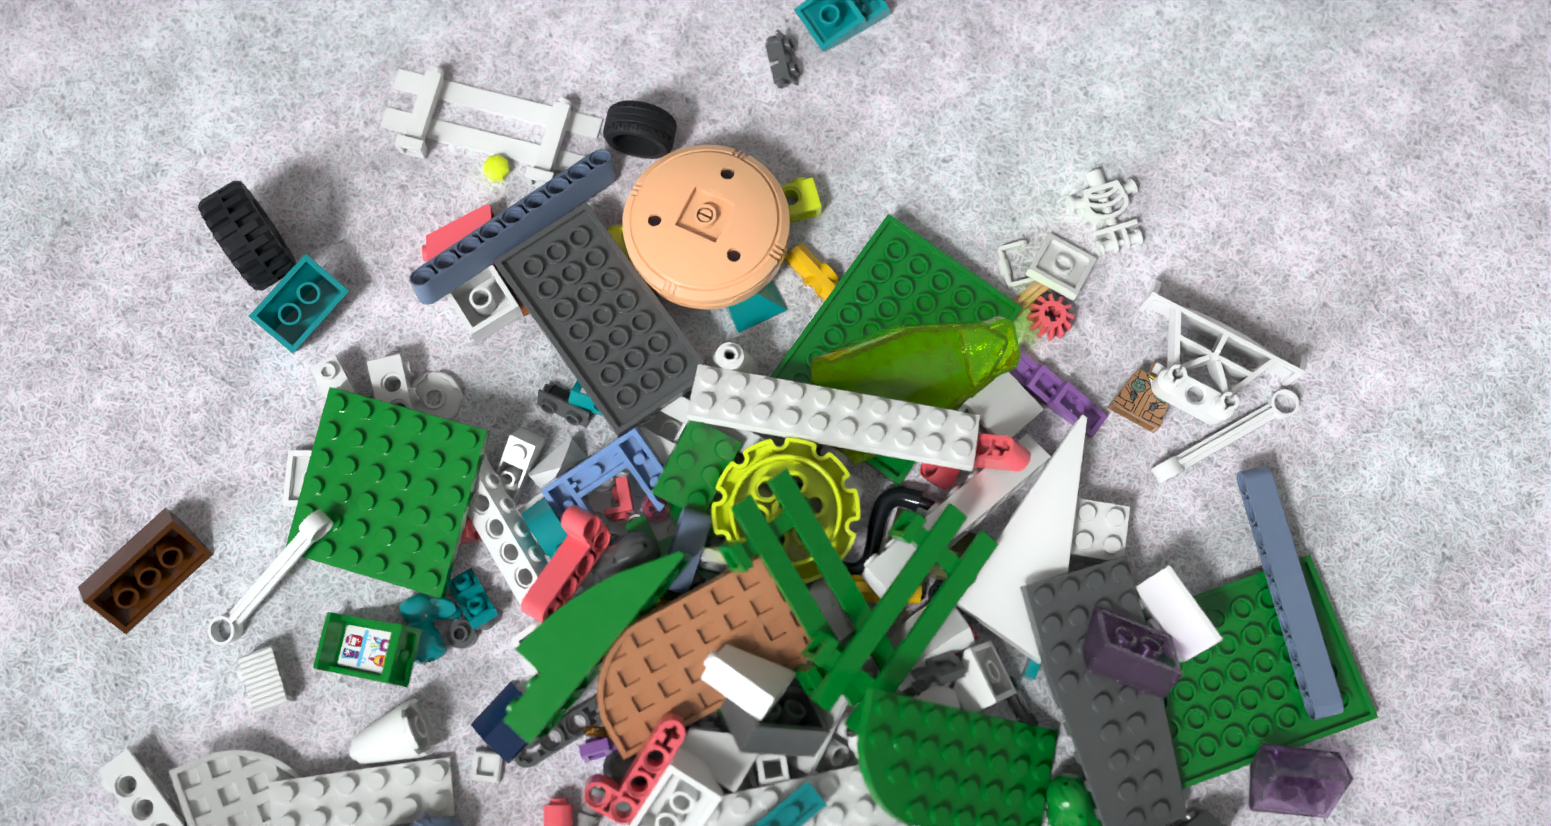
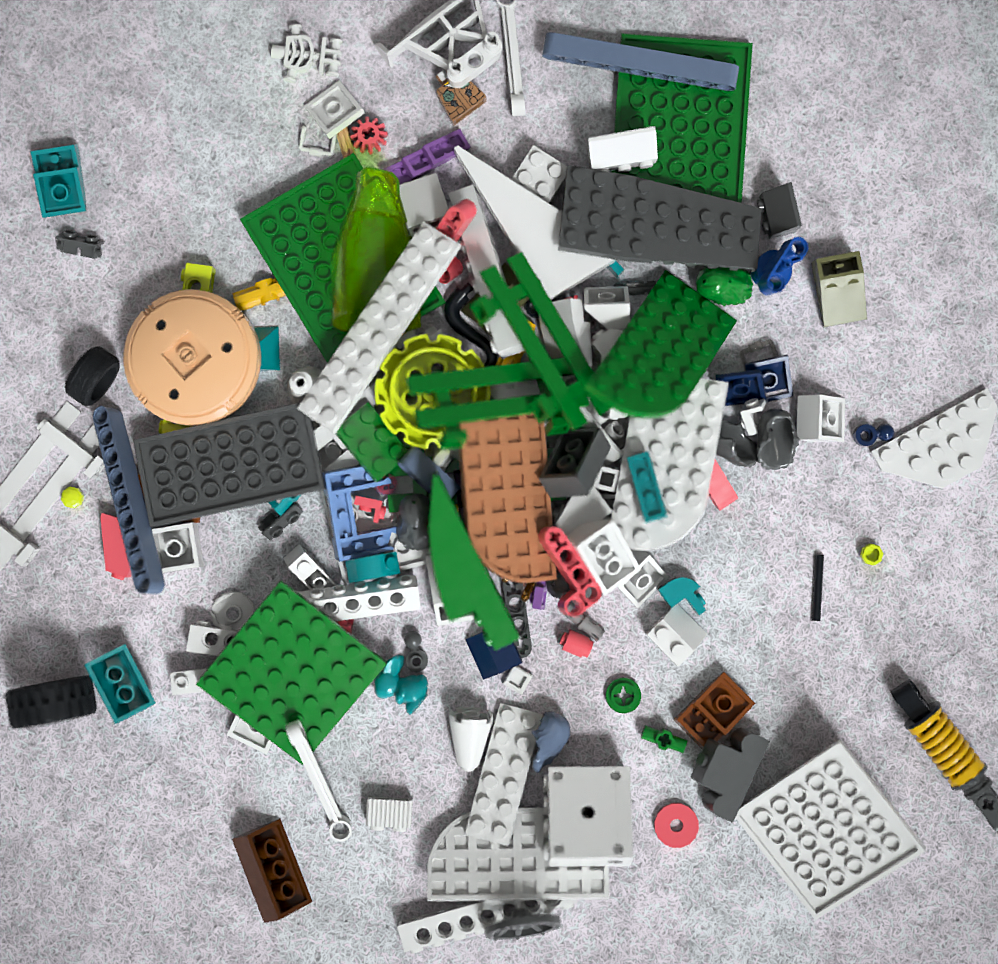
camera: 60 degrees left, 10 degrees up
(367, 649) = (400, 730): green panel -> none
(472, 598) = (395, 642): teal slope -> none
(560, 460) = (322, 542): white slope -> none
(569, 565) = (404, 563): coral beam -> none
(747, 679) = (540, 469): white slope -> none
(940, 668) = (589, 332): dark grey plate -> none
(1131, 653) = (636, 194): clear purple slope -> none
(1297, 781) = (770, 120): clear purple slope -> none

